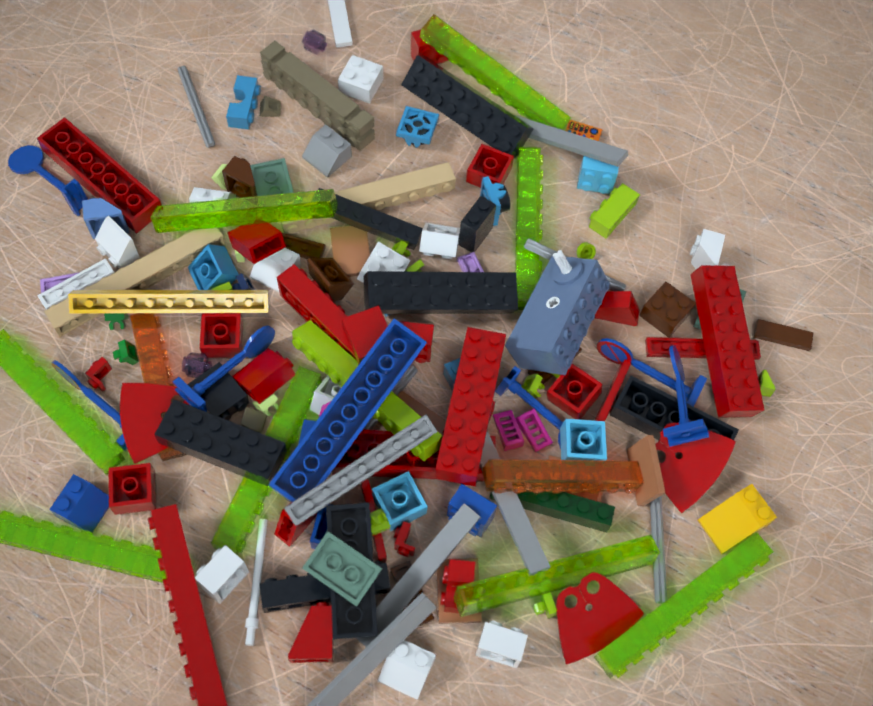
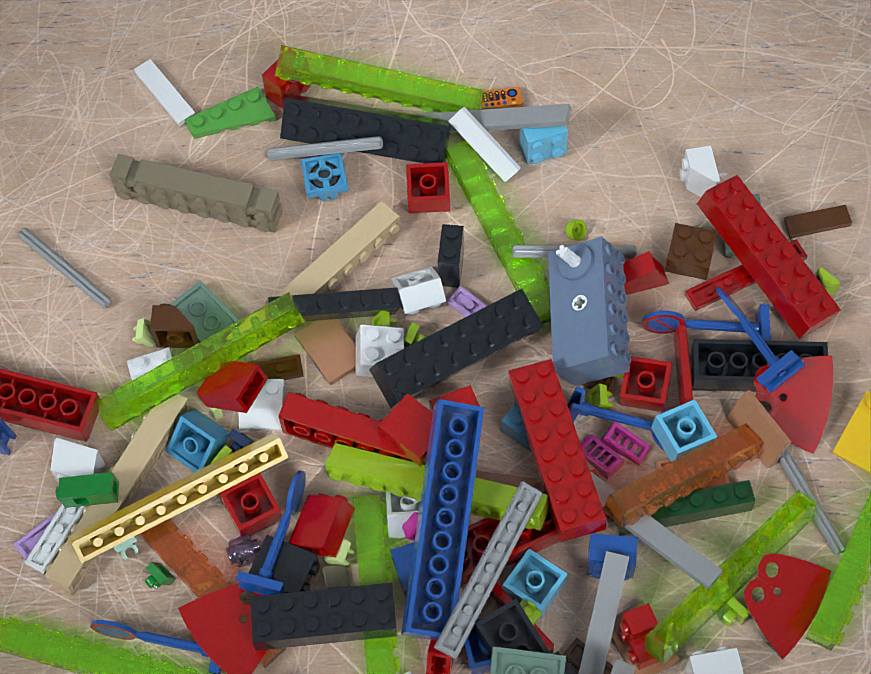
camera: 20 degrees left, 0 degrees up
(95, 212) = (39, 441): medium blue slope -> none
(96, 372) = (140, 610): red bracket -> none
(110, 265) = (88, 490): none -> green brick
(241, 114) = (121, 253): dark azure arch -> none
(270, 107) = (147, 230): dark tan slope -> none
(314, 42) = (154, 132): clear purple head -> none
(327, 151) = (241, 250): light grey slope -> none
(329, 277) = (329, 387): reddish brown slope -> none
(360, 79) = (230, 151): white brick -> none
(388, 55) = (231, 114): none -> bright green wing
(401, 536) = (555, 616): red bracket -> none
(430, 106) = (325, 148): none -> light grey axle
(497, 194) = (453, 214): dark azure piece -> none
(549, 156) = (484, 144): none -> white tile
(613, 210) = (579, 171): lime brick -> none

